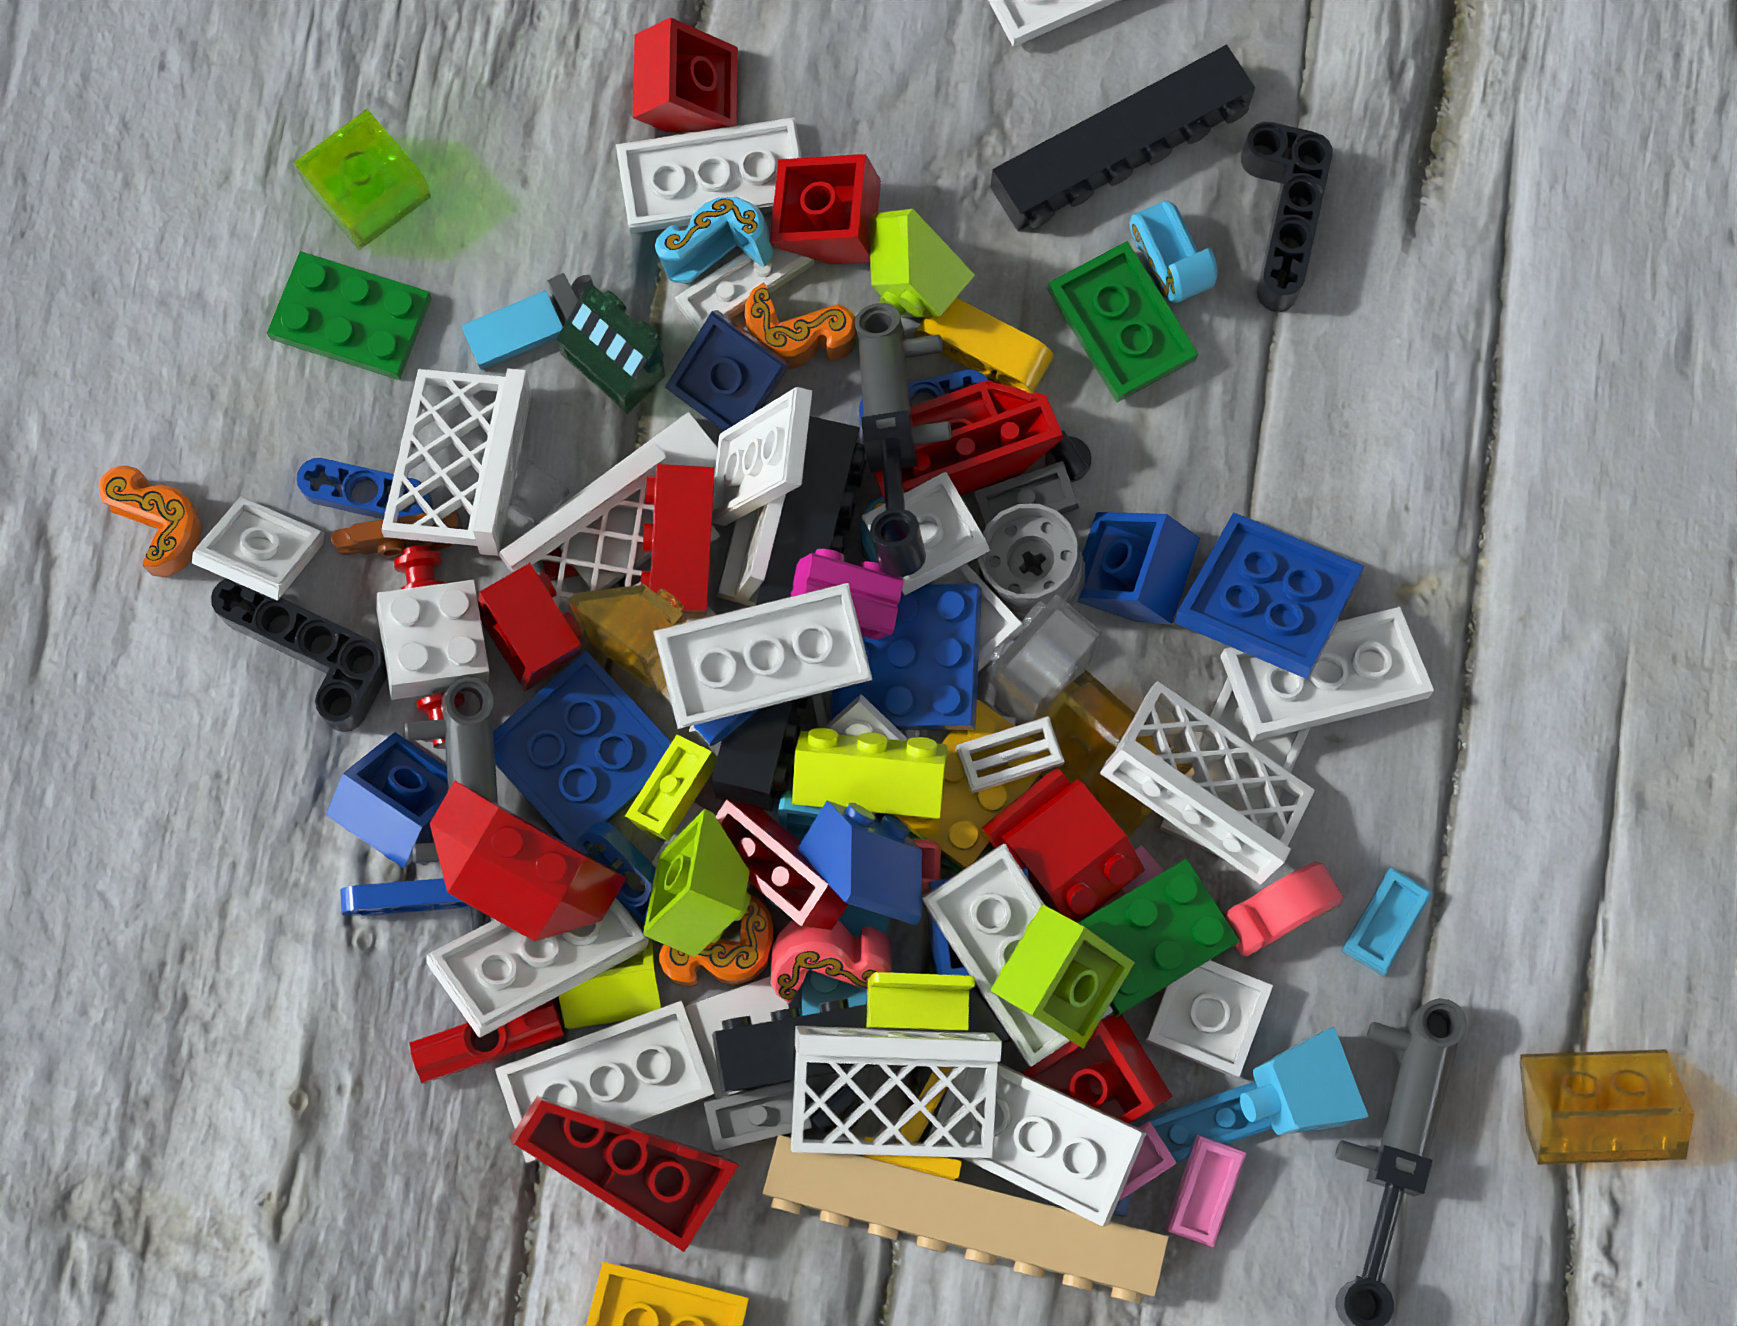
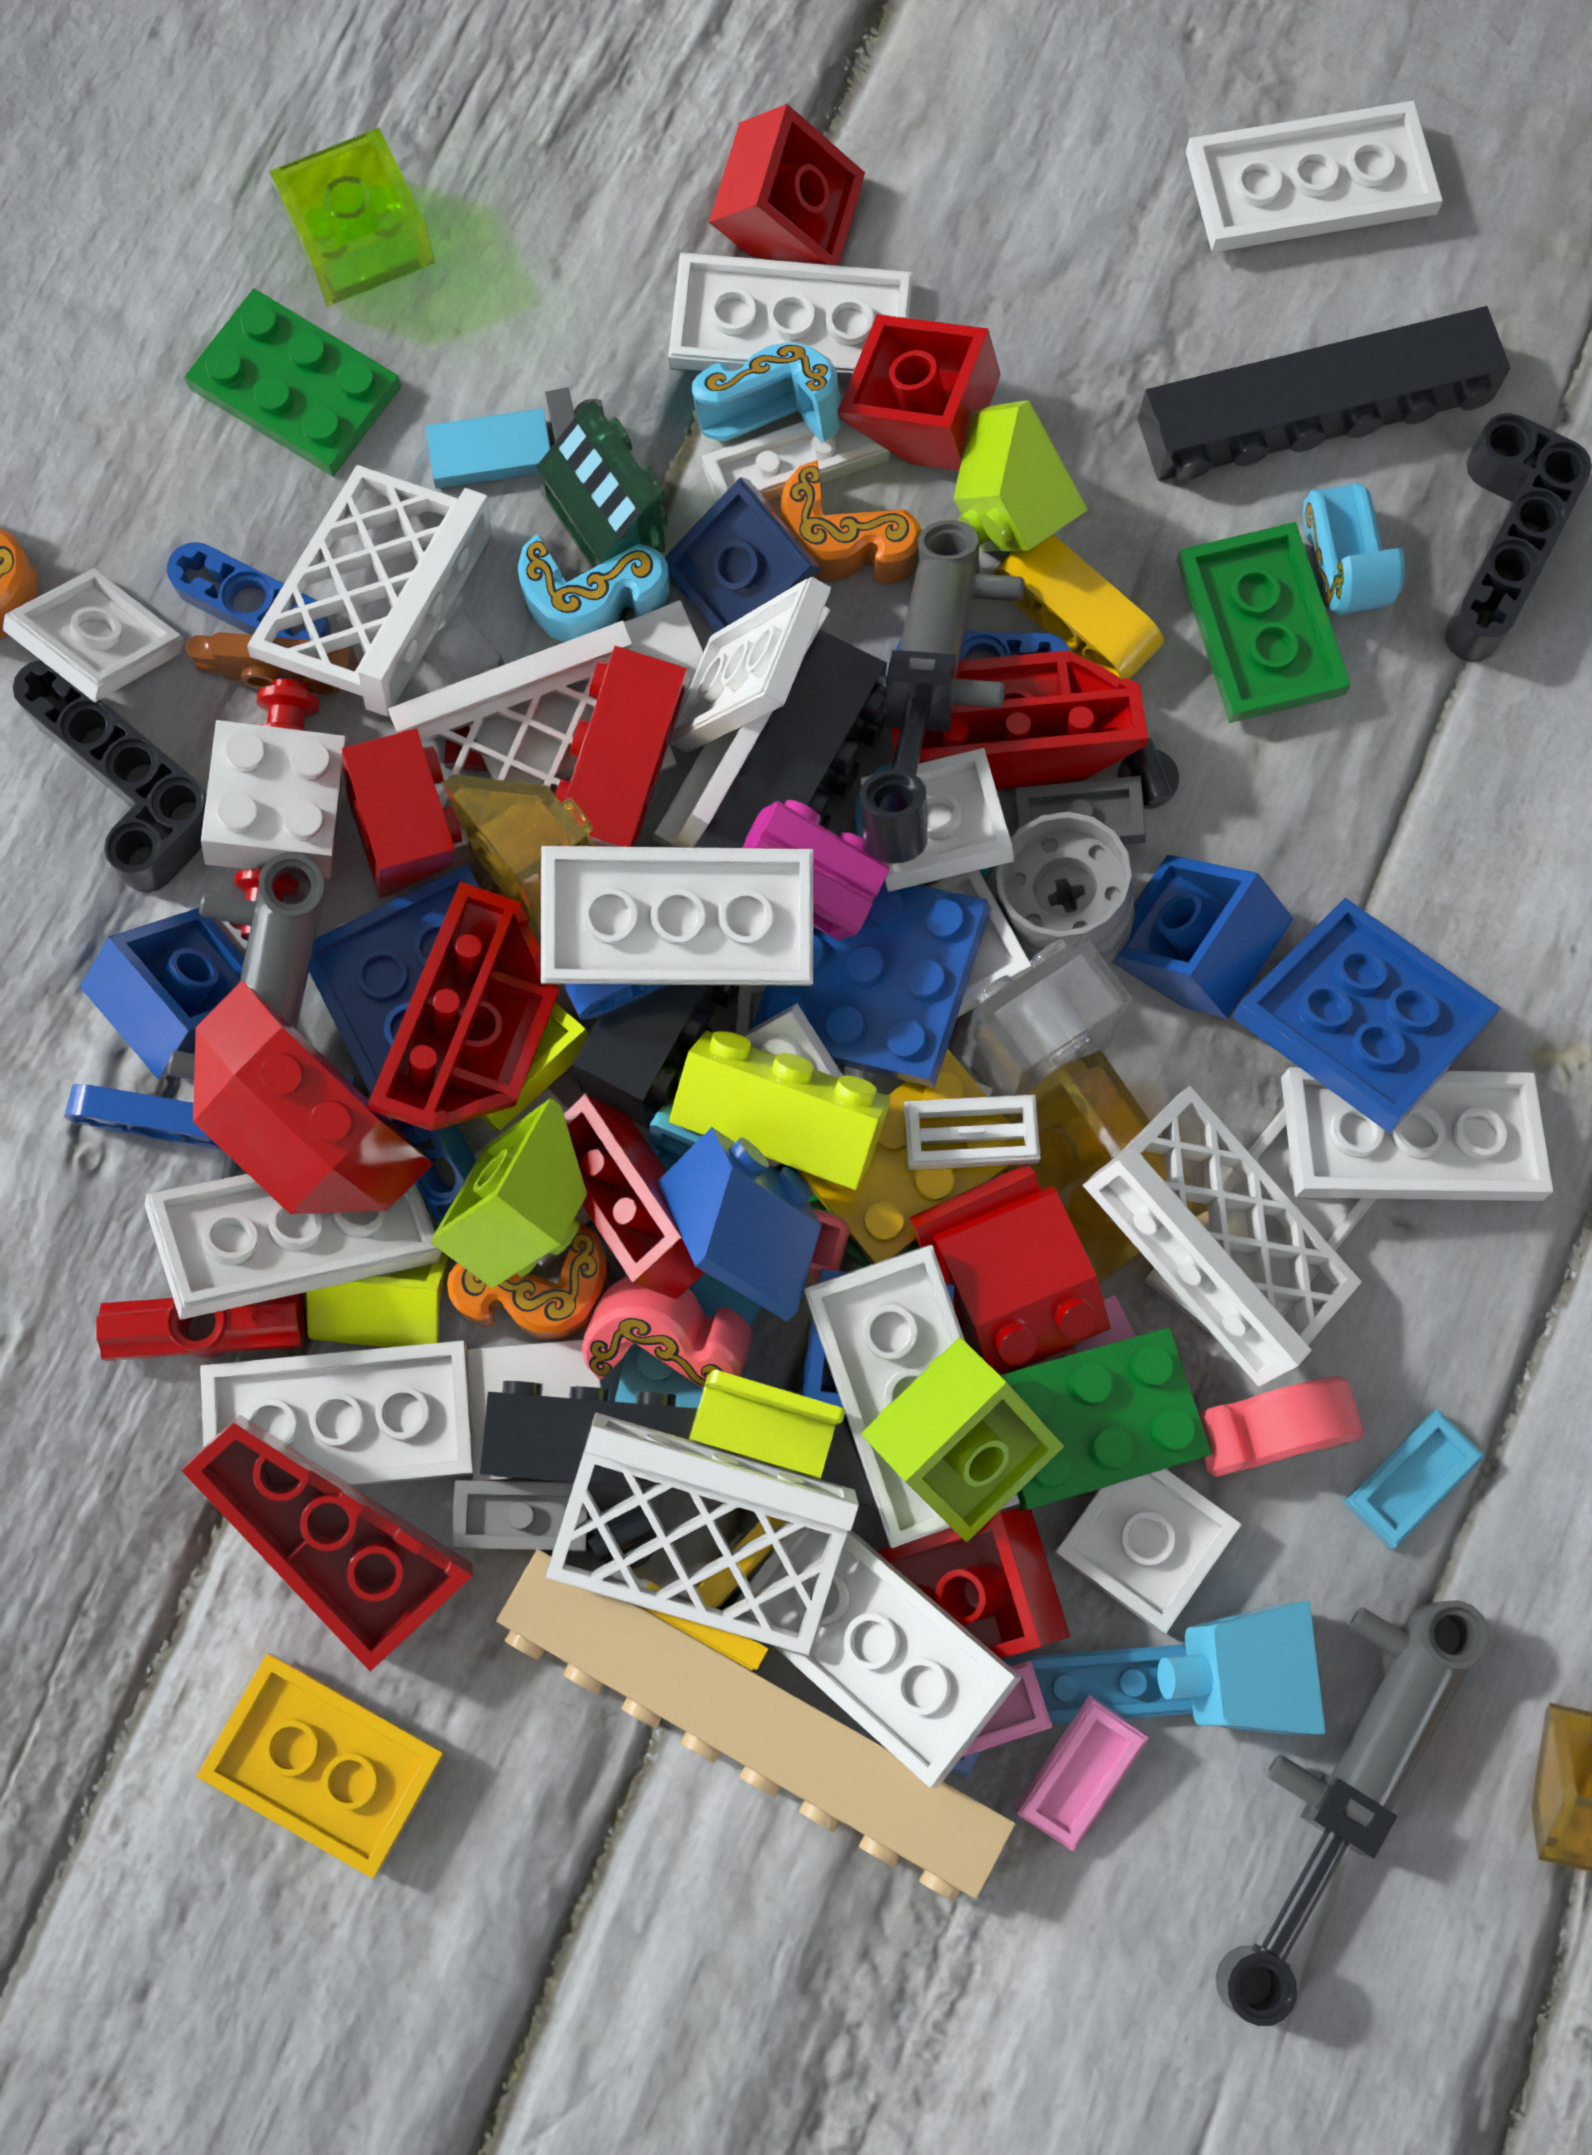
camera: 15 degrees right, 0 degrees up
(625, 427) = (595, 598): none -> medium azure animal
(627, 764) = (469, 1019): none -> red wedge

